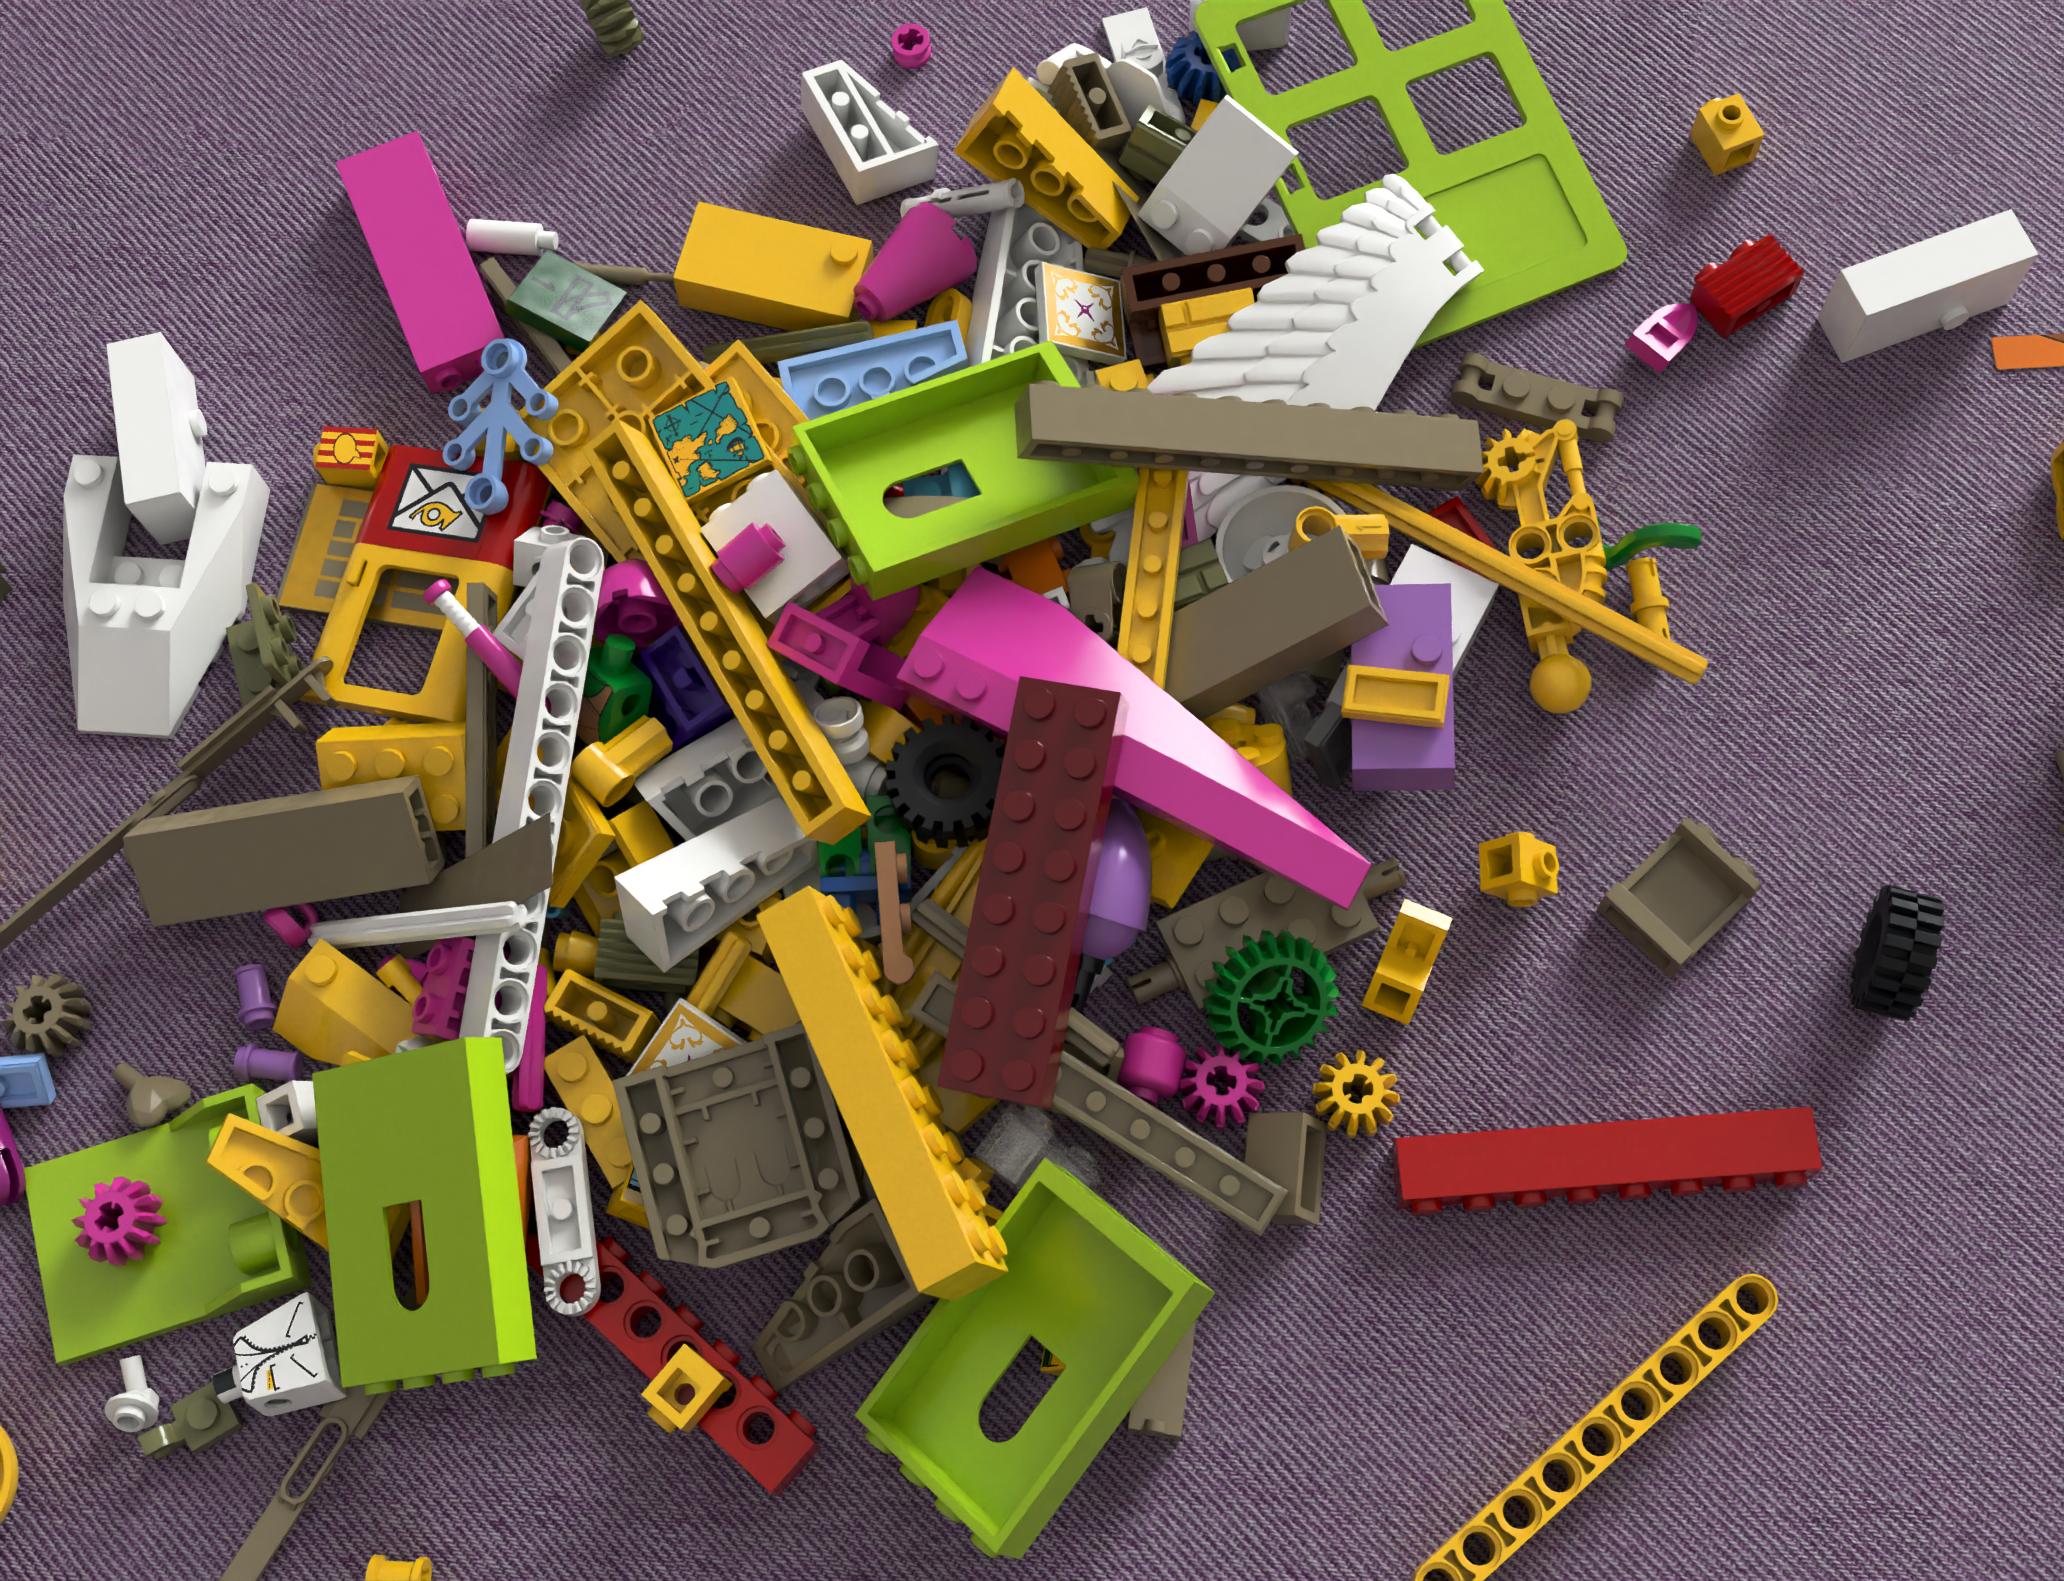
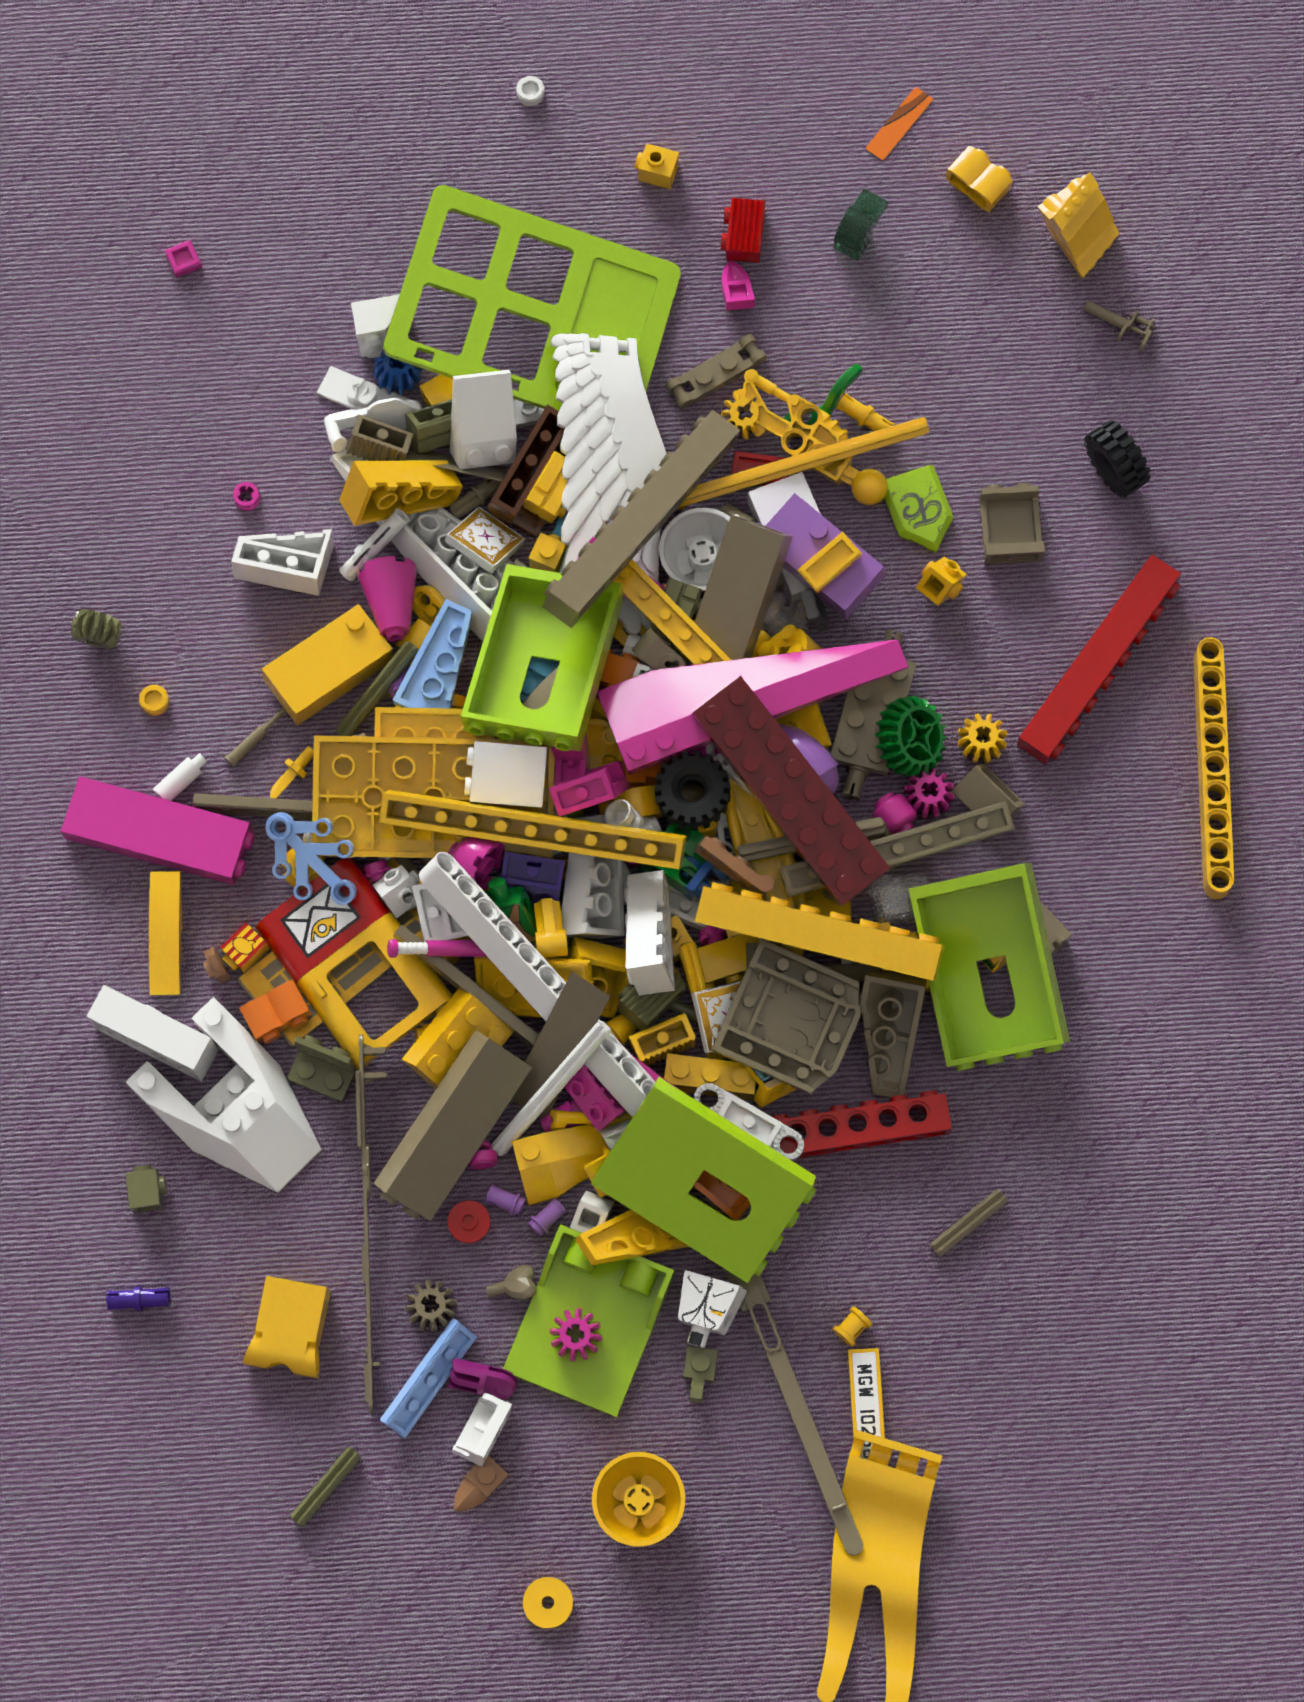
camera: 55 degrees left, 5 degrees up
(138, 1405) = (665, 1393): white plate -> none
(195, 975) = (468, 1221): none -> red piece
(295, 549) = (276, 1011): none -> orange brick
(299, 365) = (165, 933): none -> yellow slope
(302, 435) = (215, 966): none -> medium nougat plate
(565, 301) = (252, 777): tile -> none
(586, 144) = (154, 700): none -> yellow tile
(683, 1370) = (882, 1117): yellow brick -> none
(710, 440) = (421, 761): tile -> none
(749, 557) = (511, 788): dark pink brick -> none
(1368, 531) = (718, 520): yellow piece -> none
(1406, 961) = (941, 666): yellow brick -> none
(1595, 767) = (919, 507): none -> lime tile
(1879, 395) = (858, 224): none -> clear green brick
(1926, 286) = (821, 156): white brick -> none

